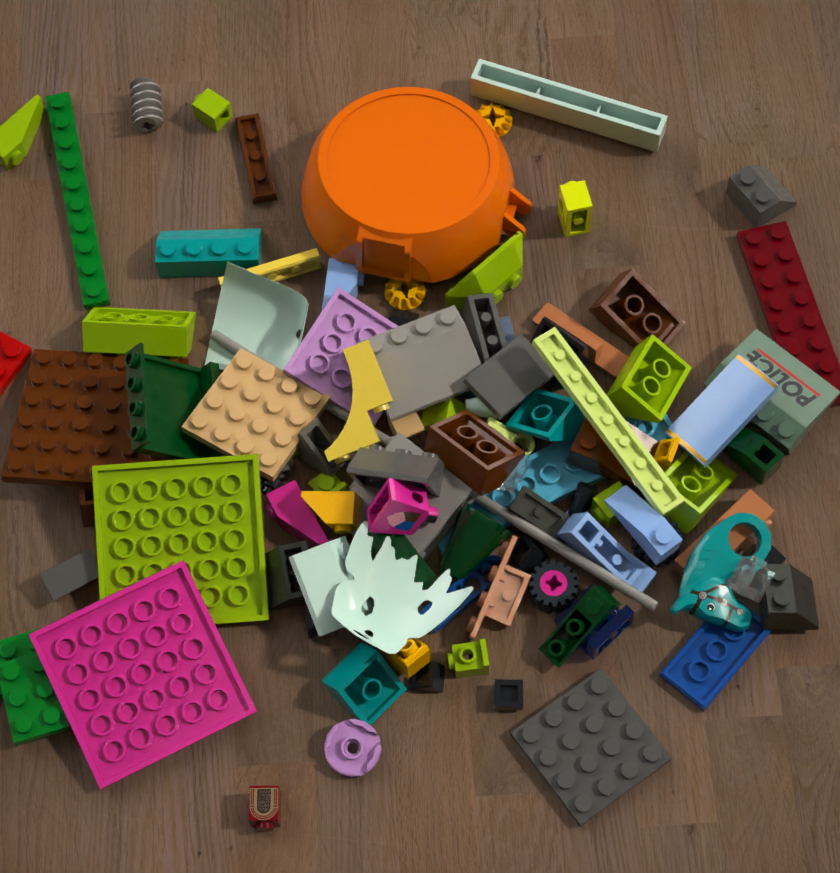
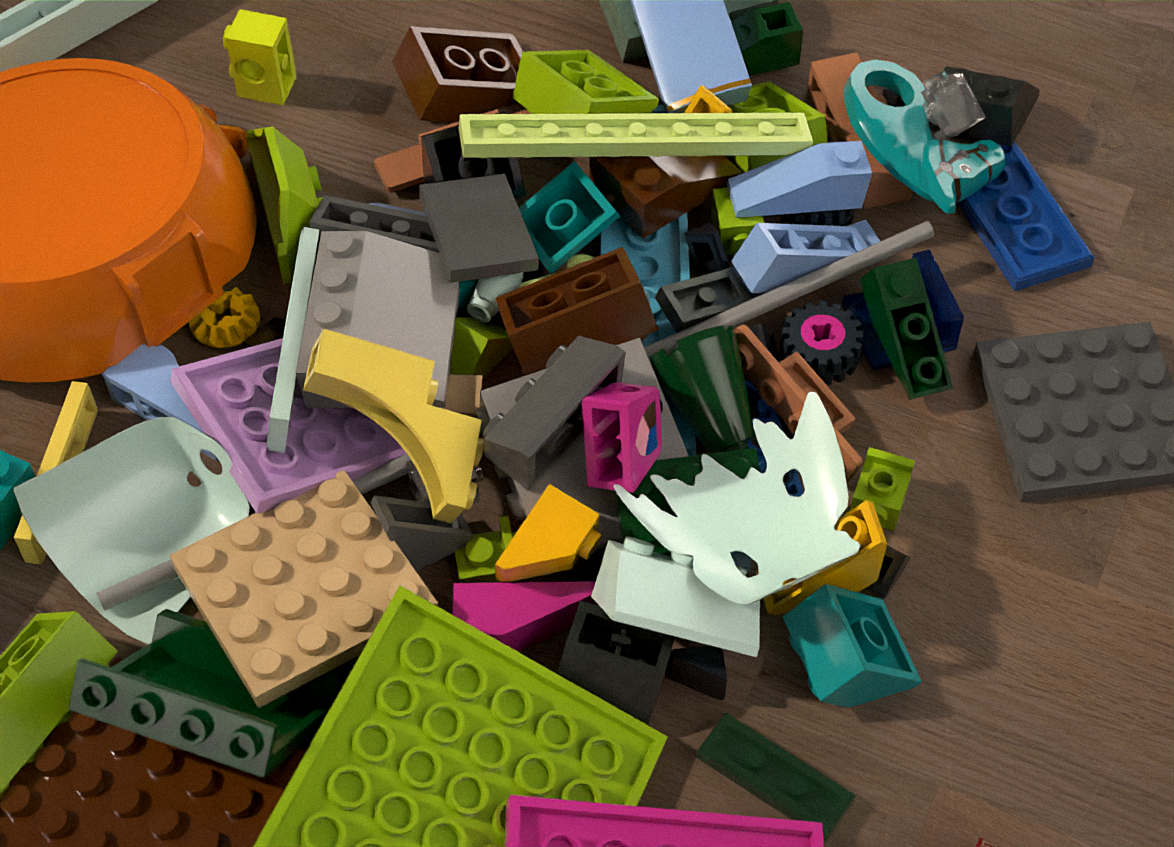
camera: 65 degrees left, 10 degrees down
(277, 681) = (774, 775): none -> clear green tile
(335, 349) = (291, 343): none -> light aqua tile
(337, 746) = (966, 695): lavender plate -> none
(508, 694) = (962, 468): black plate -> none

